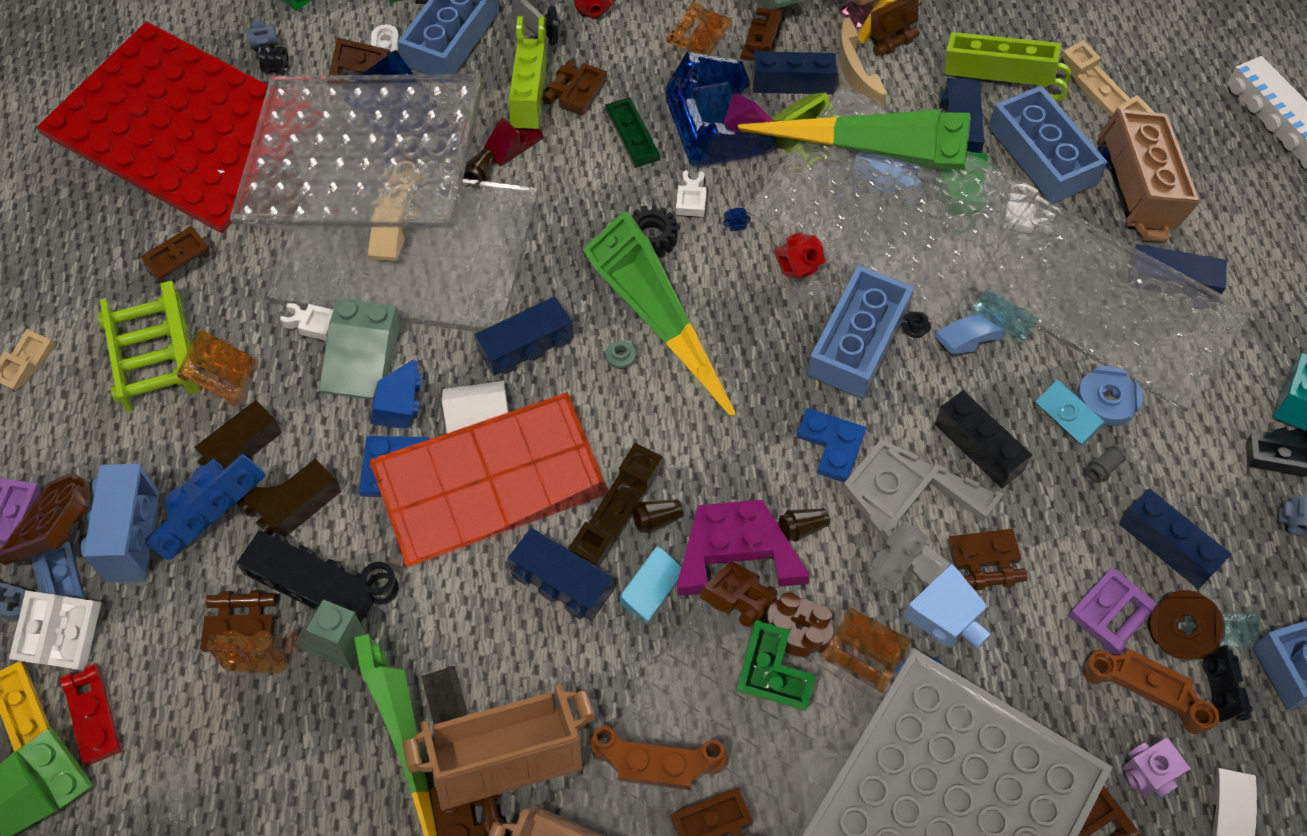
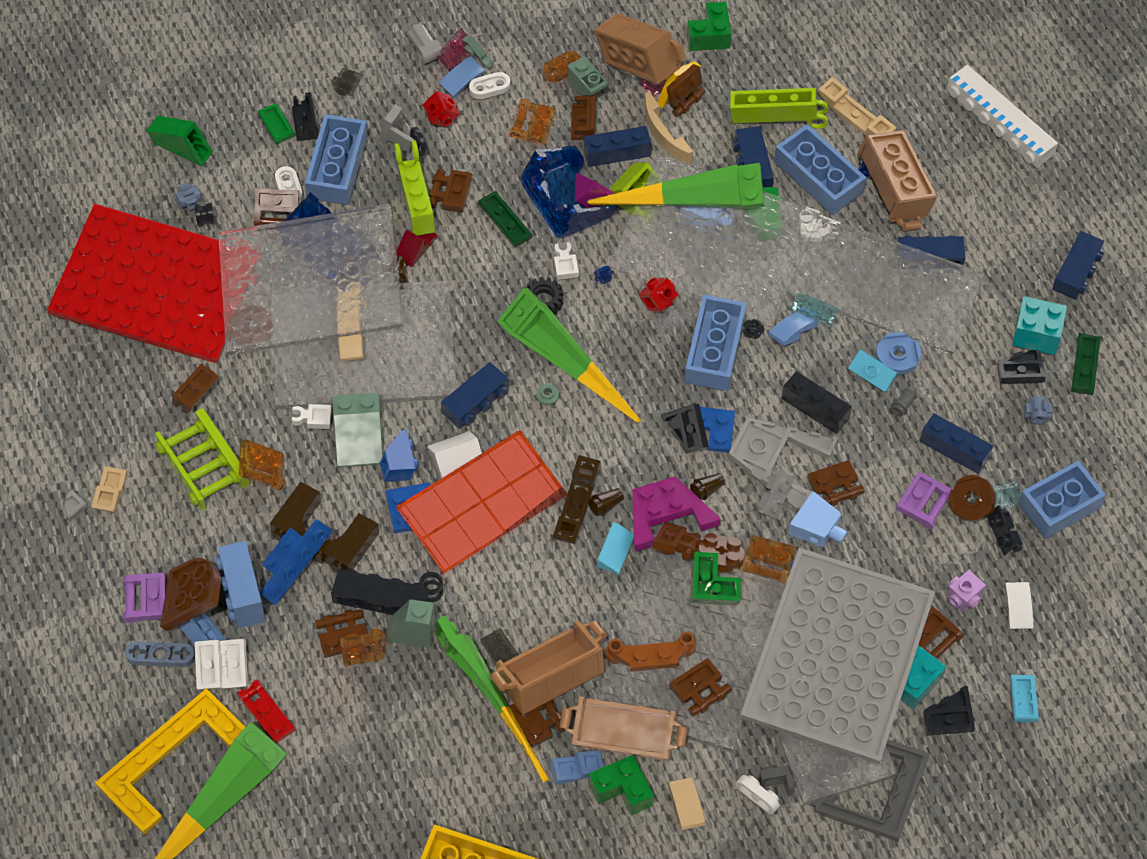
camera: 15 degrees left, 0 degrees up
(560, 575) = (552, 555): dark blue brick -> none
(796, 436) = (688, 427): none -> black wing
(1155, 684) = (957, 540): dark orange plate -> none

